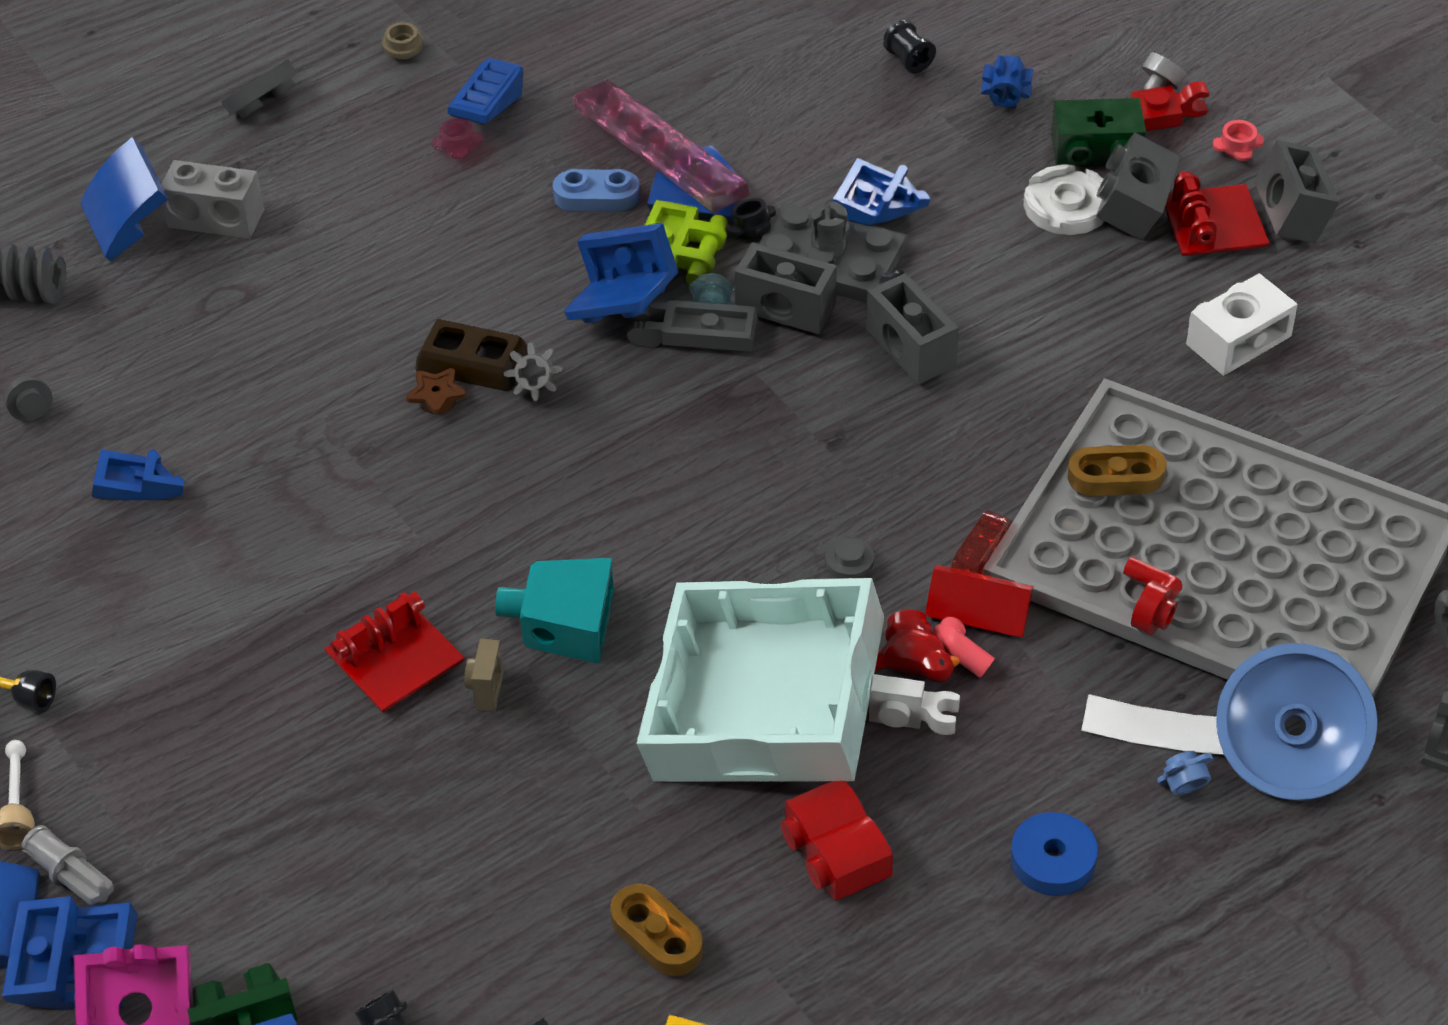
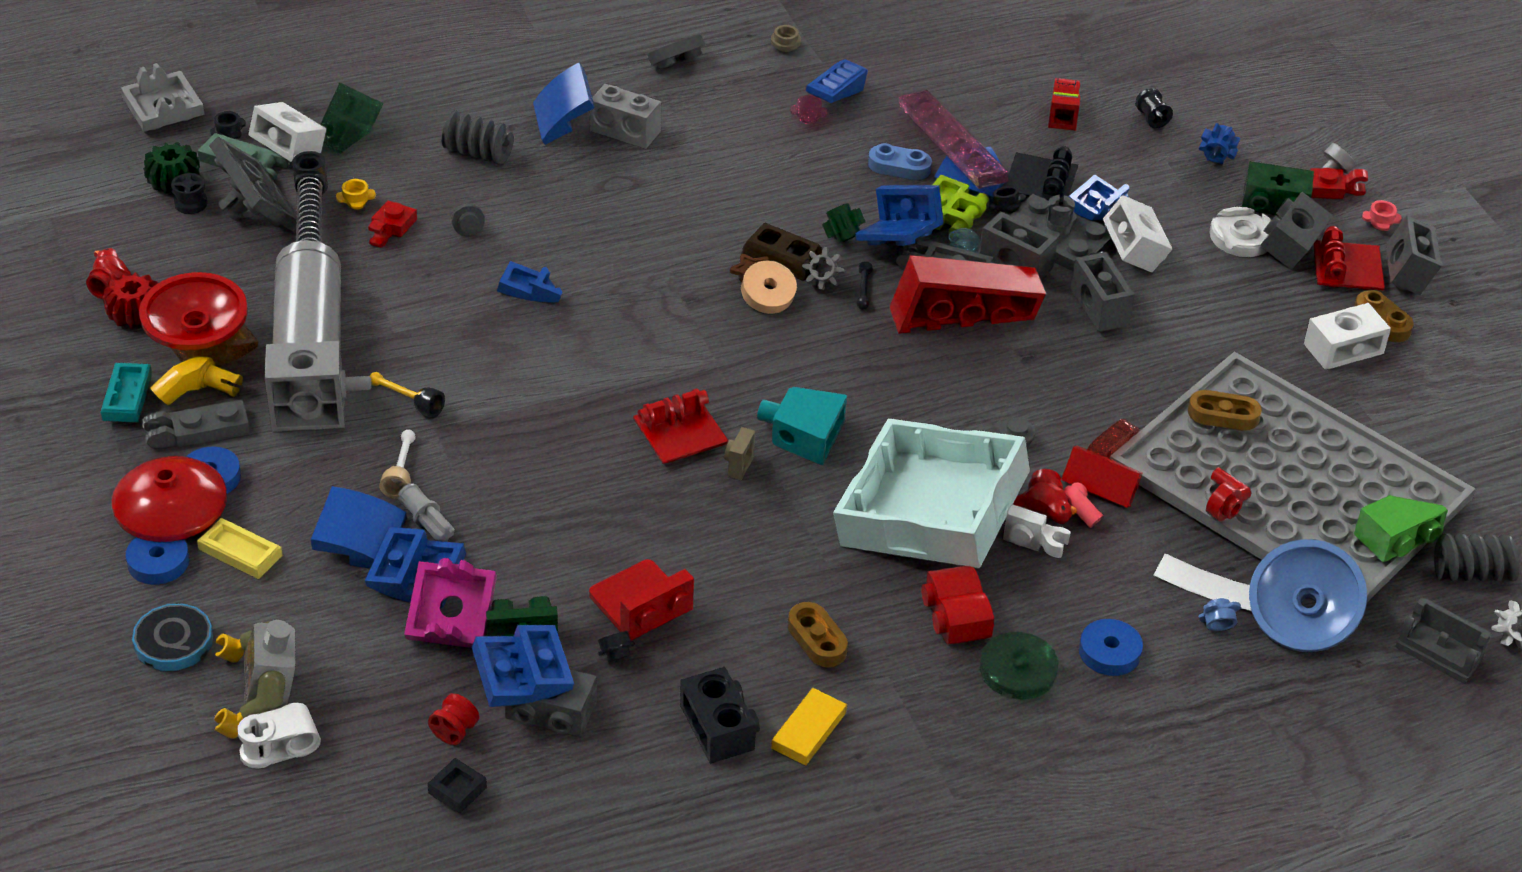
camera: 10 degrees right, 5 degrees down
(401, 929) = (643, 597): none -> red bracket
(465, 432) = (765, 299): none -> light nougat piece
(544, 297) = (843, 222): none -> dark green gear
(587, 357) = (864, 268): none -> black hinge
(730, 368) = (964, 293): none -> red wedge
(790, 173) = (1043, 175): none -> black hinge
(793, 59) = (1065, 101): none -> red leg
(933, 931) = (1019, 665): none -> clear green plate
(935, 234) = (1137, 234): none -> white brick
(1290, 280) = (1398, 320): none -> pearl gold plate
(1386, 592) = (1399, 525): none -> bright green slope

